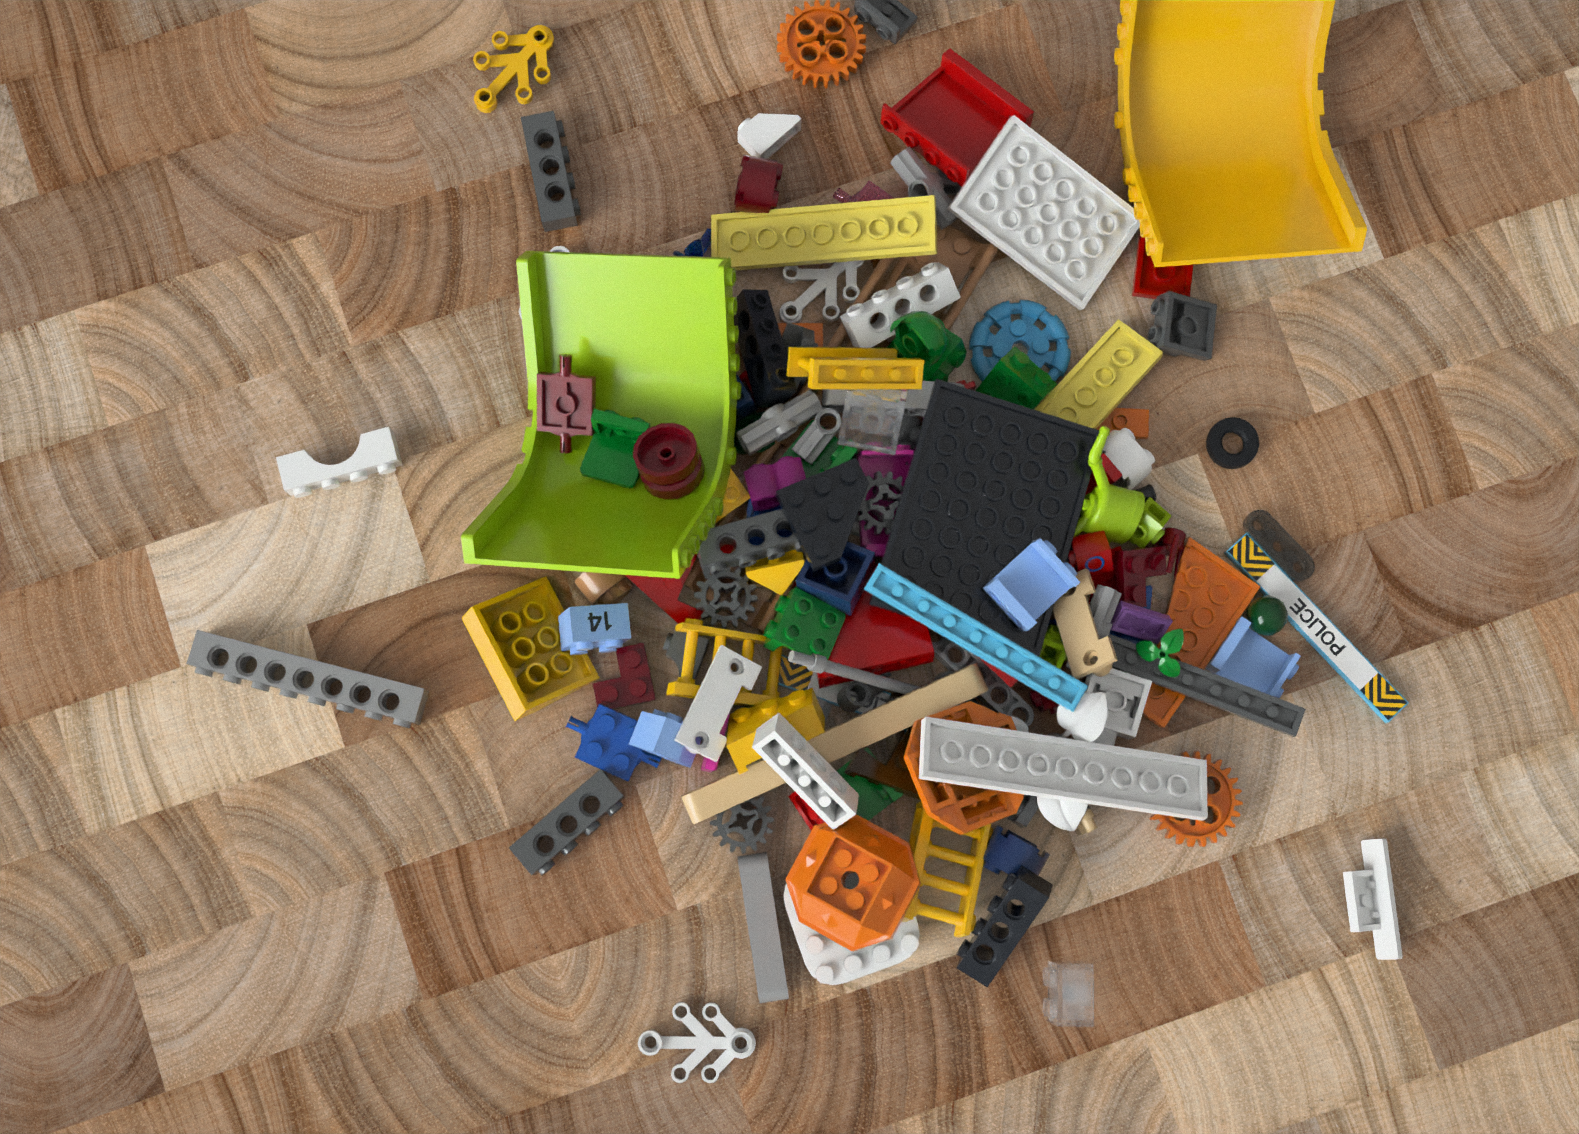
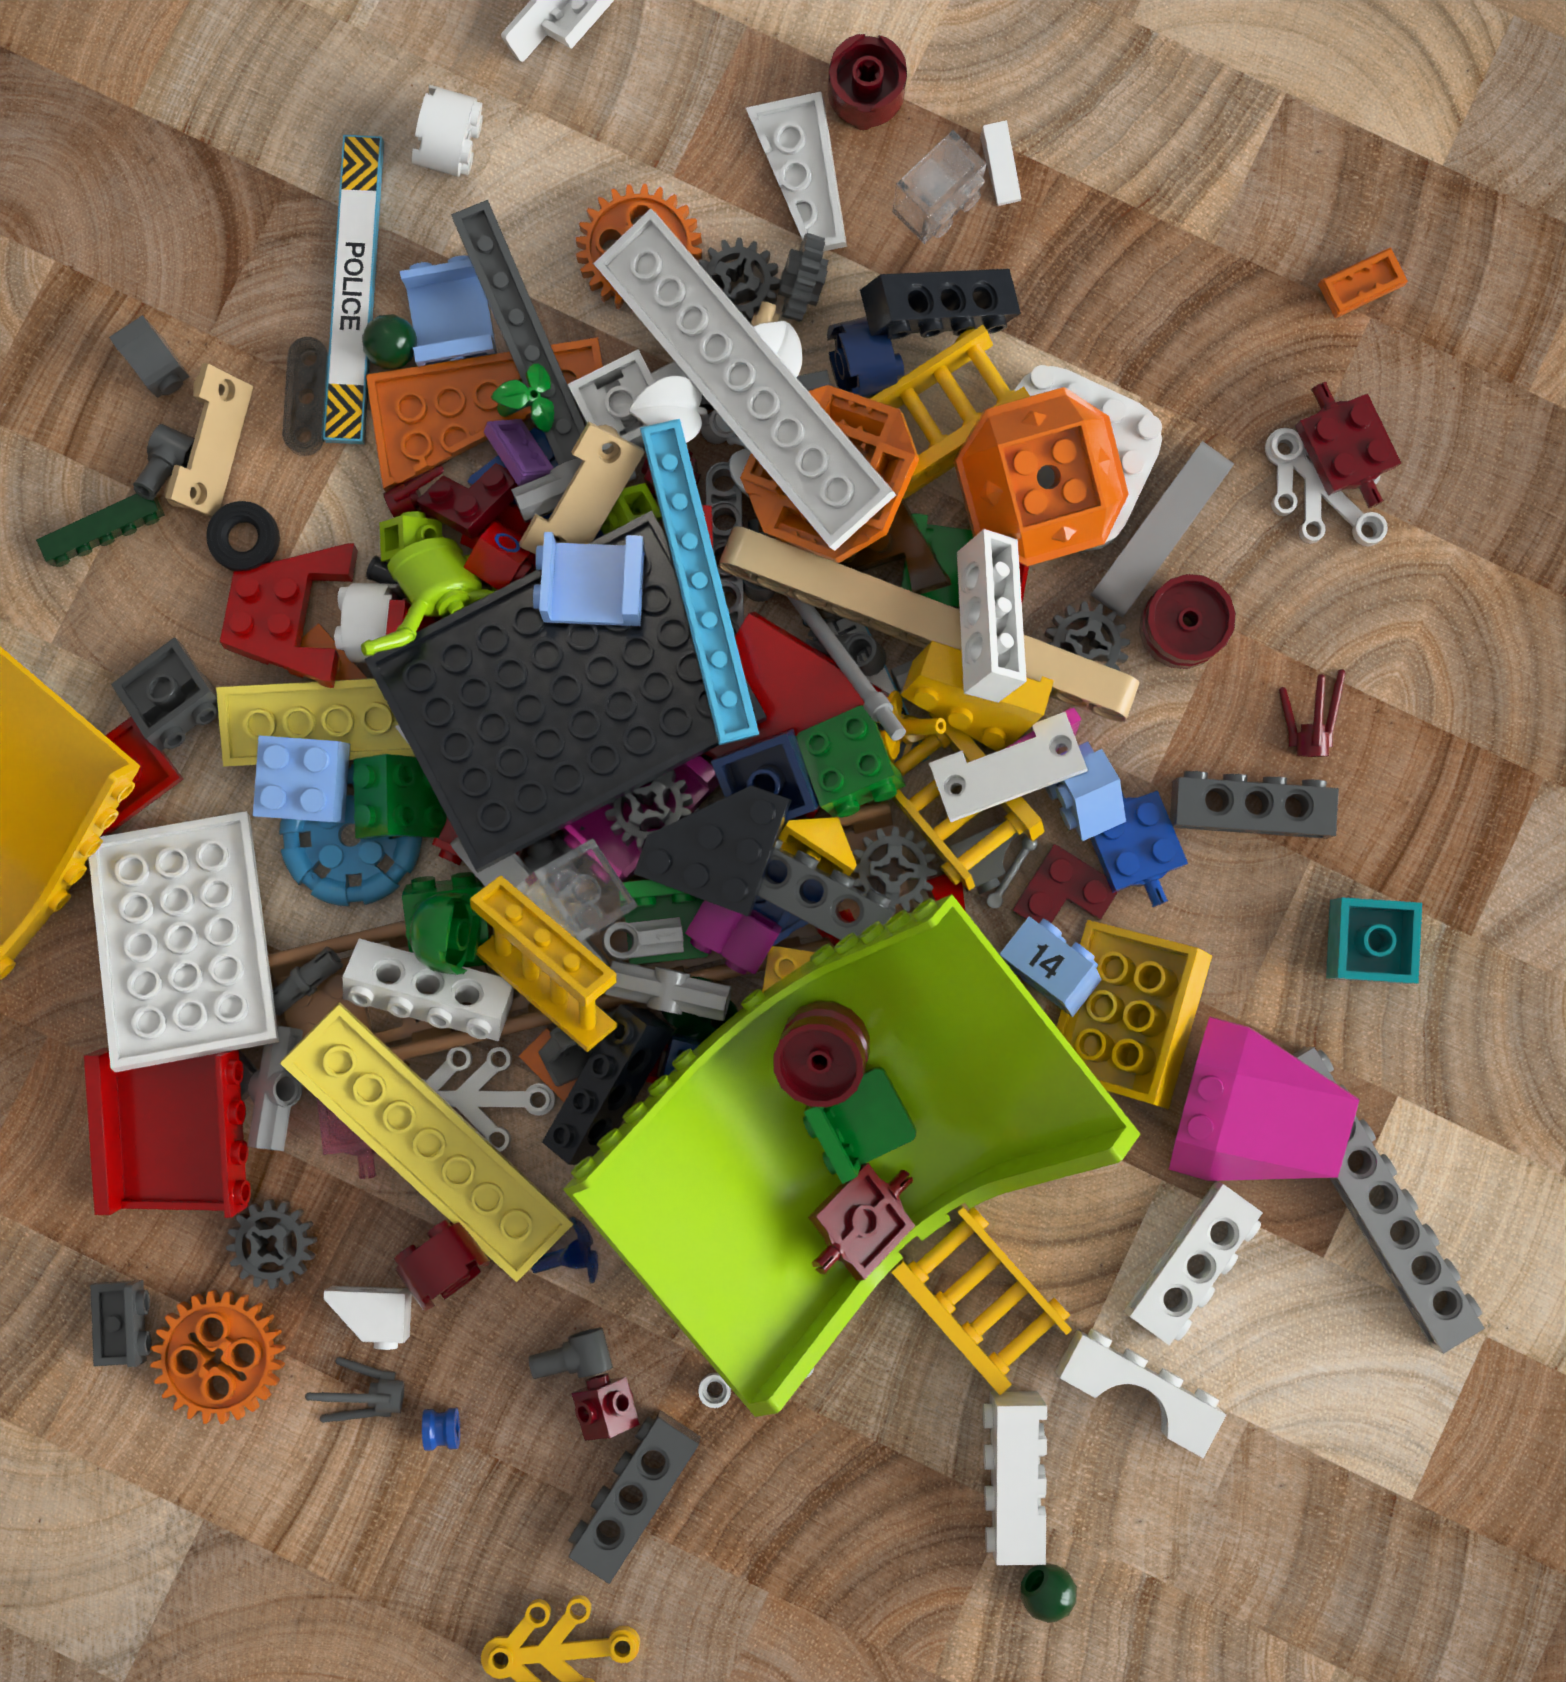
camera: 130 degrees left, 5 degrees up
(294, 319) = (1048, 1592): none -> dark green piece
(364, 360) = (1016, 1477): none -> white wedge
(386, 595) = (1171, 1271): none -> white brick
(412, 660) = (1259, 1112): none -> dark pink wedge
(434, 812) = (1374, 940): none -> teal brick
(455, 403) = (969, 1335): none -> yellow fence
(571, 893) = (1316, 737): none -> dark red plant
(606, 197) = (605, 1407): none -> dark red brick
(644, 212) = (583, 1354): none -> dark grey pin
(658, 640) = (995, 899): none -> light grey hinge
(677, 112) = (441, 1429): none -> blue wheel
(688, 900) = (1206, 607): none -> dark red wheel
(707, 1077) = (1347, 444): none -> dark red plate
(721, 101) = (384, 1396): none -> dark grey plant
(792, 681) = (916, 728): none -> yellow plant
(861, 117) = (284, 1253): none -> dark grey gear
(966, 254) = (305, 979): none -> dark grey pin
(1051, 1047) = (1000, 162): none -> white piece
(1071, 346) = (301, 779): none -> light blue brick
(1090, 867) = (803, 277): none -> dark grey gear
(1129, 846) = (752, 288): none -> dark grey gear
(1163, 940) = (801, 158): none -> white wing
(1177, 417) = (270, 609): none -> red wing
(1178, 1031) = (867, 59): none -> dark red brick
(1296, 473) = (215, 442): none -> tan brick
(1306, 376) = (99, 529): none -> dark green piece
(1314, 446) = (164, 450): none -> dark grey pin
(1357, 756) = (445, 131): none -> white brick
(1375, 484) = (150, 357): none -> dark grey arch

